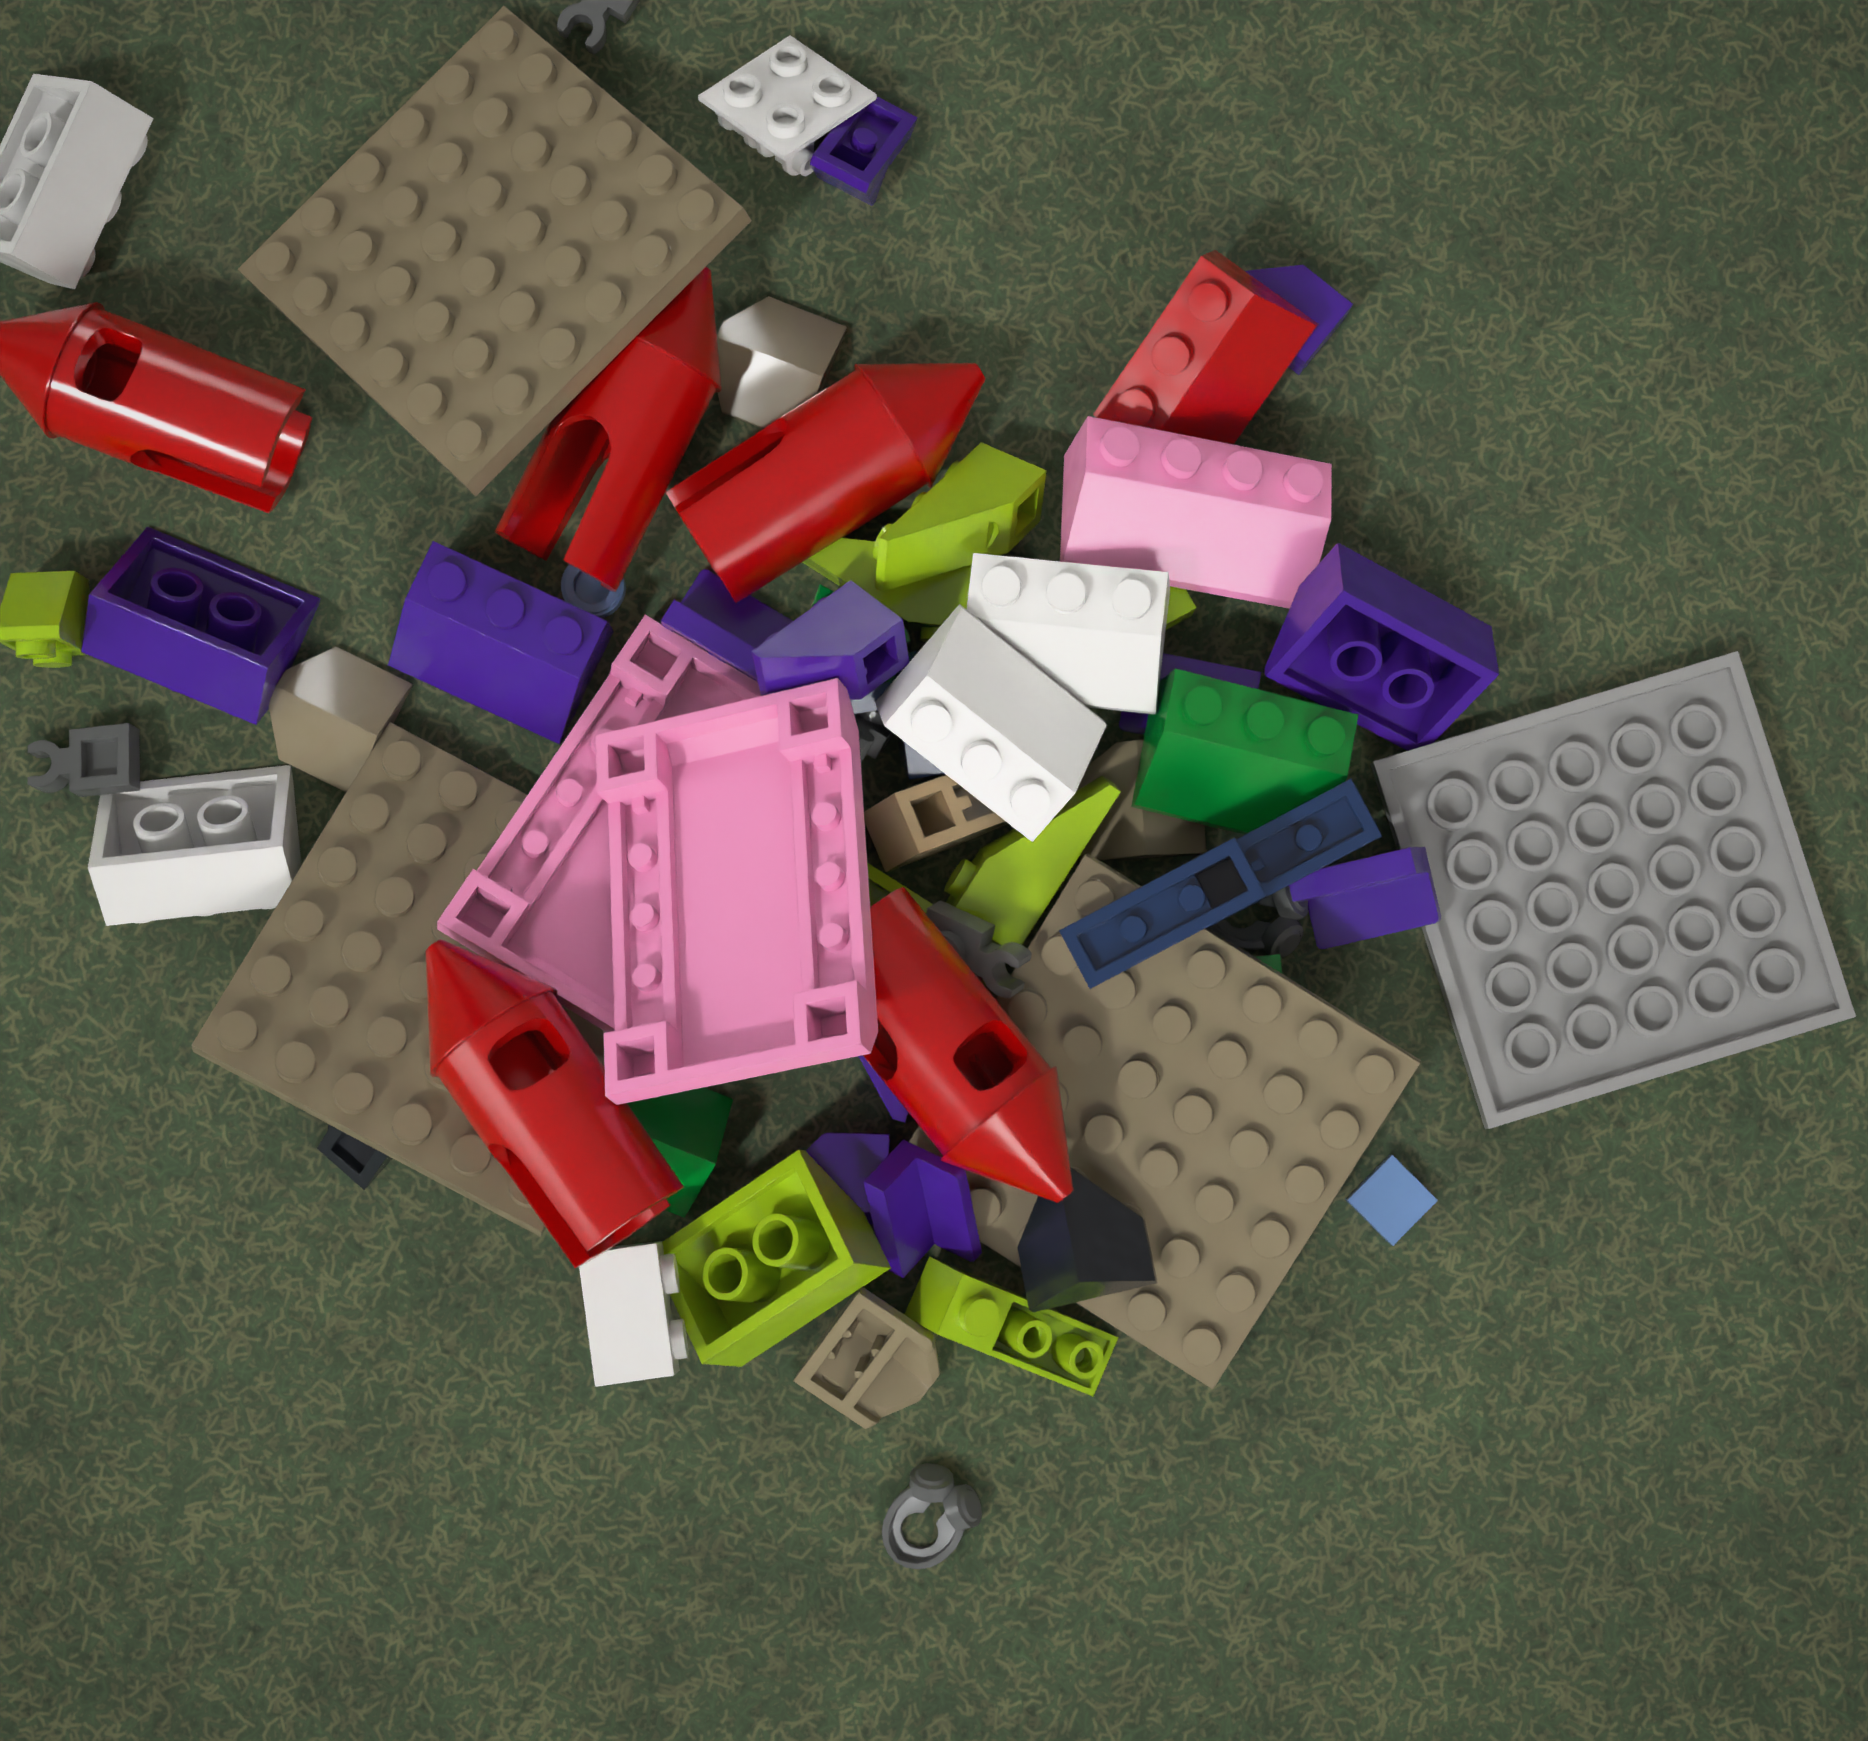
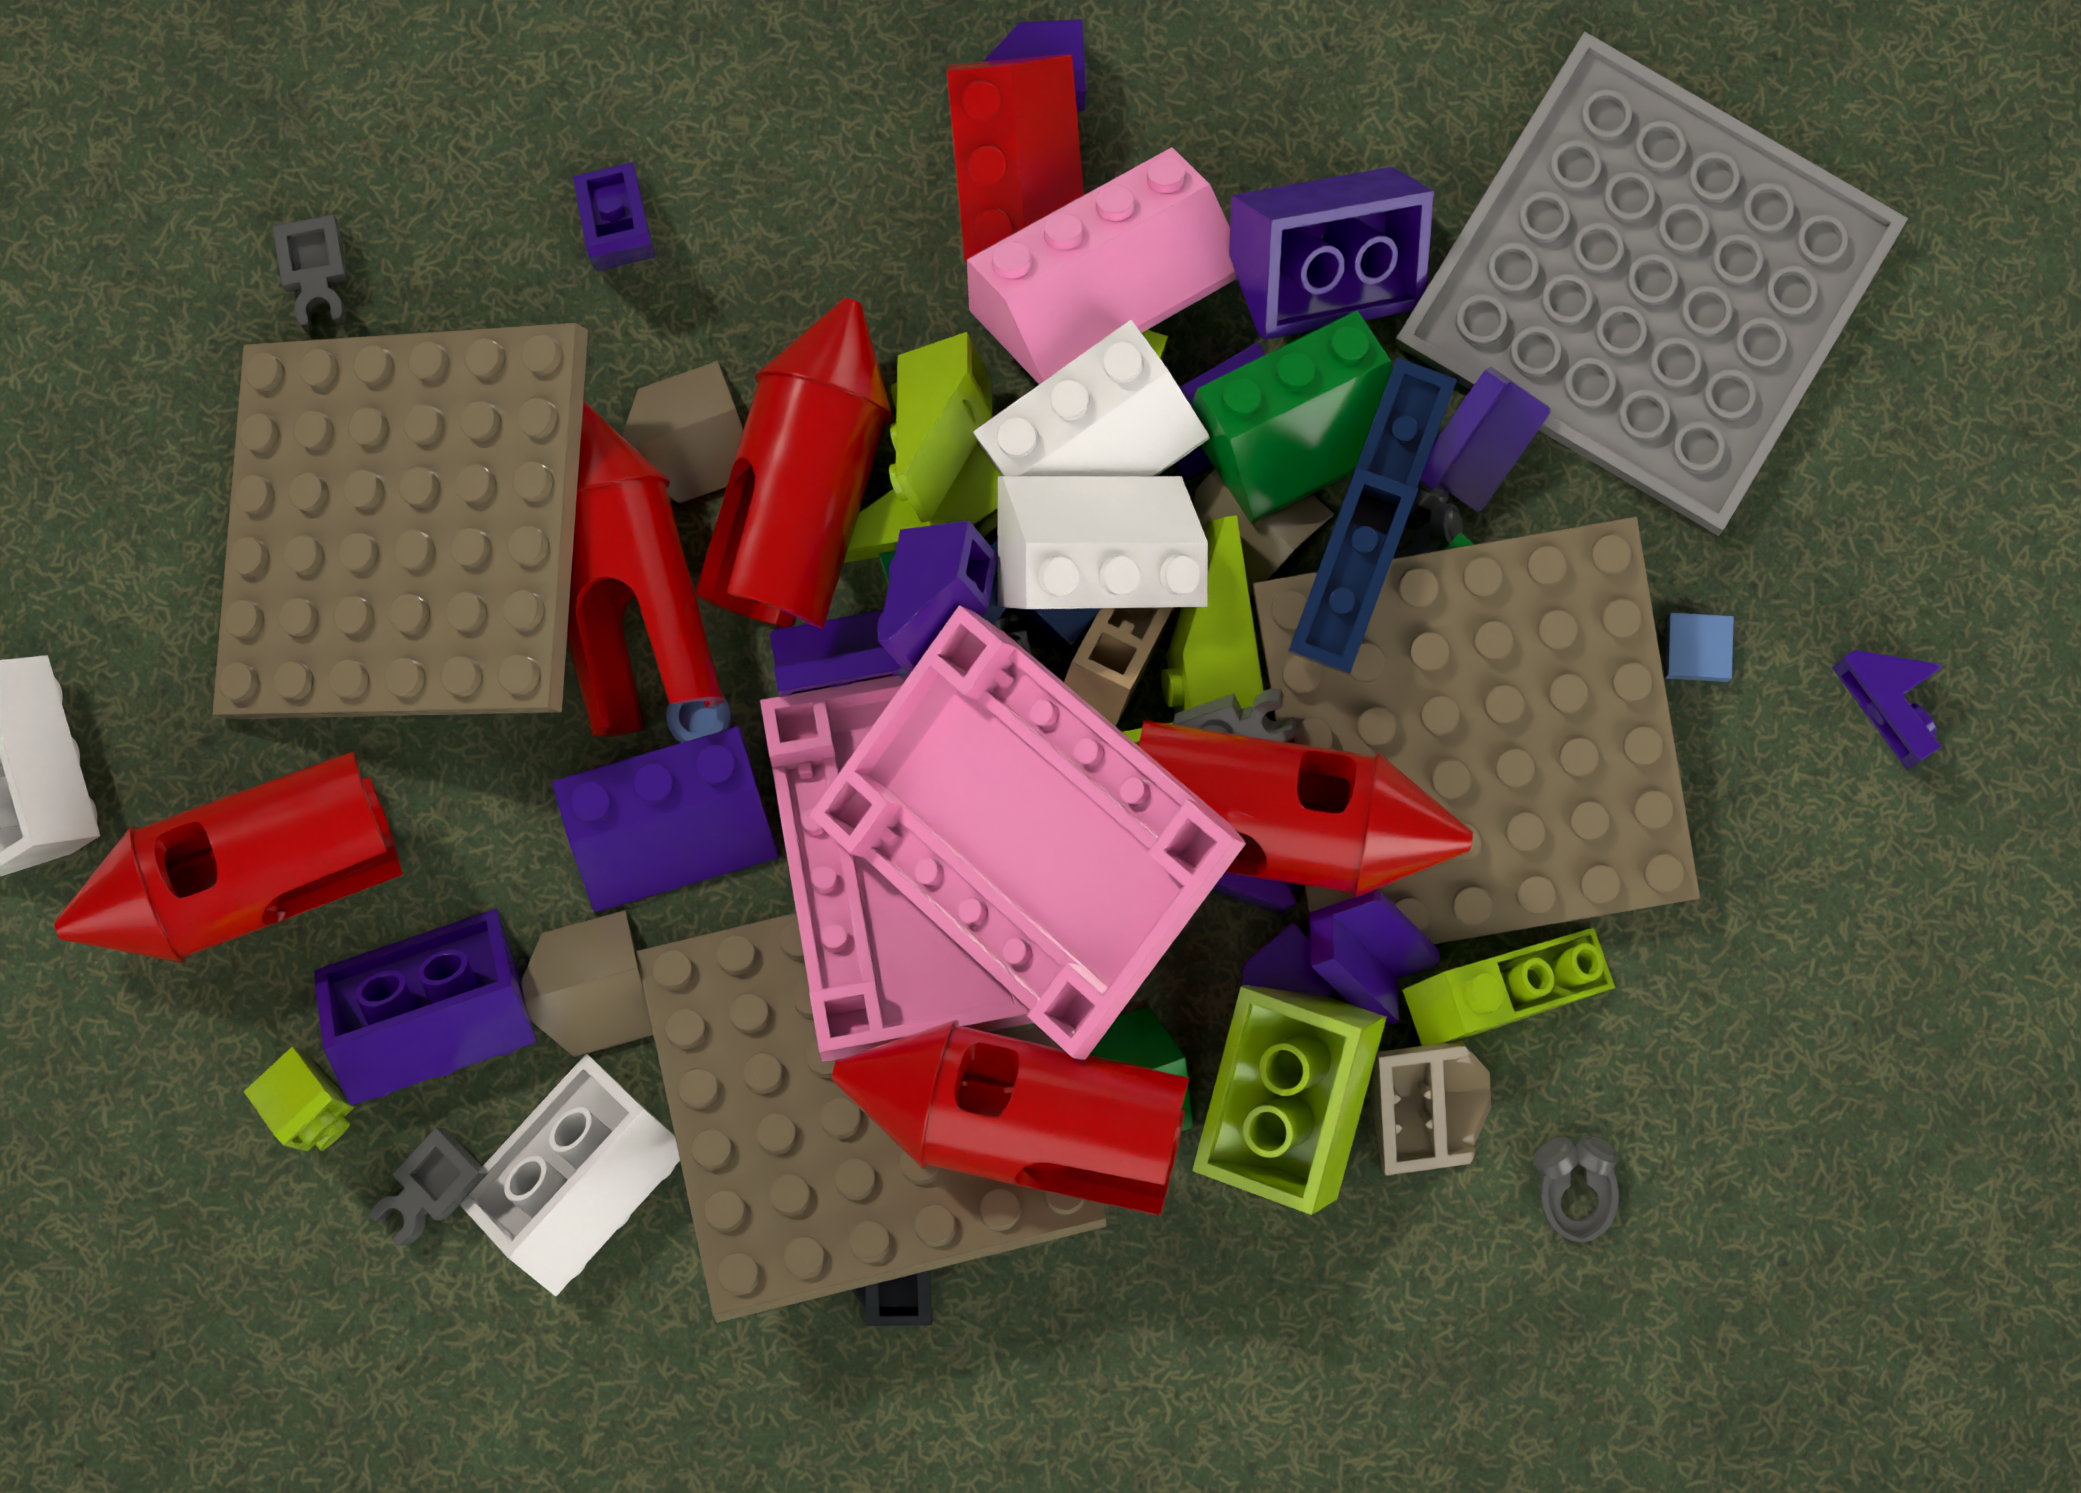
camera: 45 degrees left, 5 degrees down
(632, 1314) = (1226, 1224): white slope -> none
(786, 102) = (526, 233): white hinge -> none
(1083, 1248) = (1513, 876): black slope -> none
(1498, 1354) = (1879, 689): none -> dark purple slope

